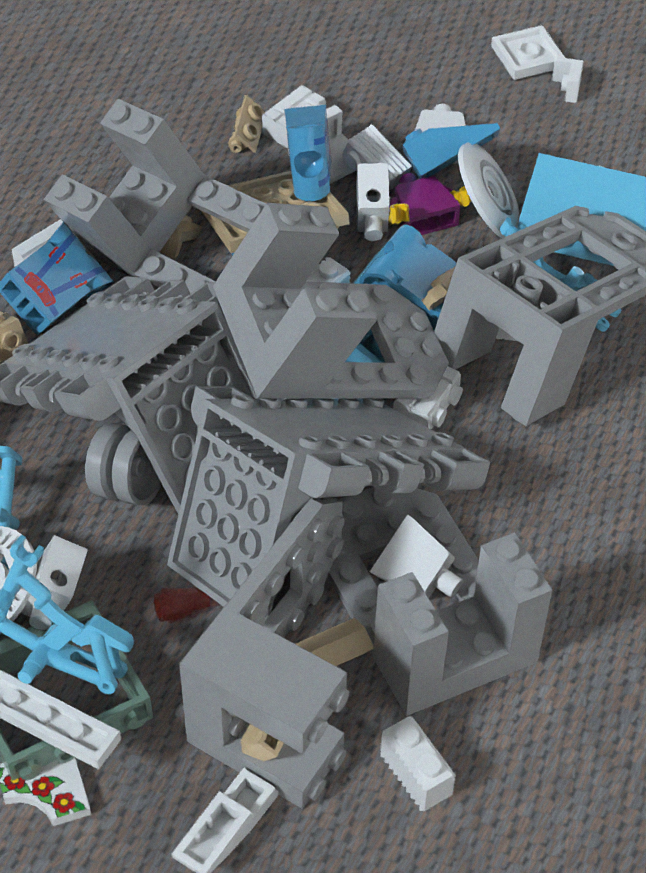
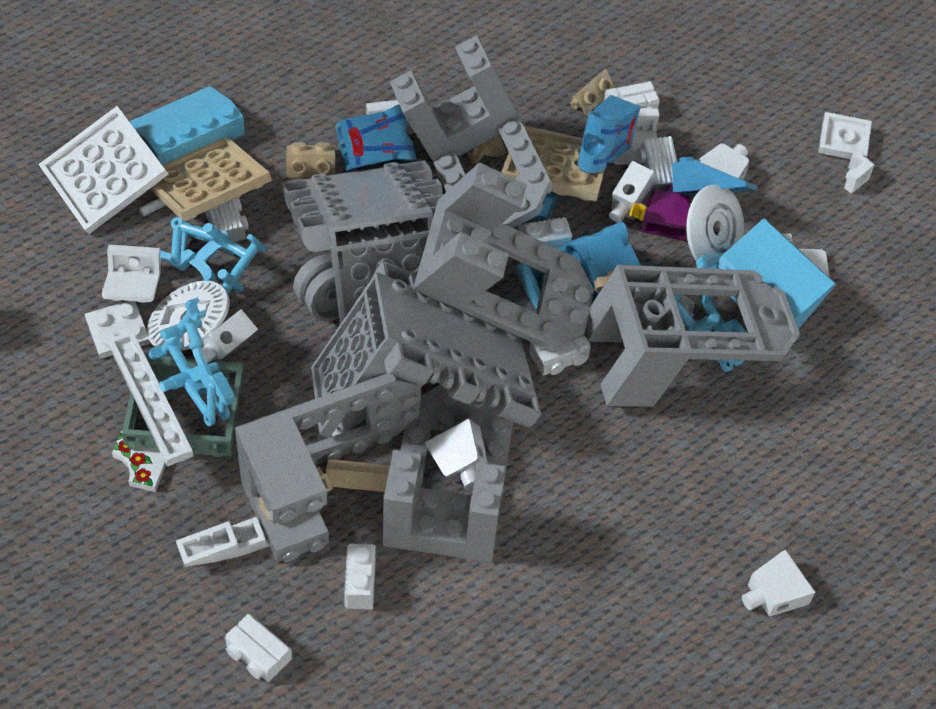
camera: 30 degrees right, 5 degrees up
(178, 603) = (296, 394): clear red cone -> none

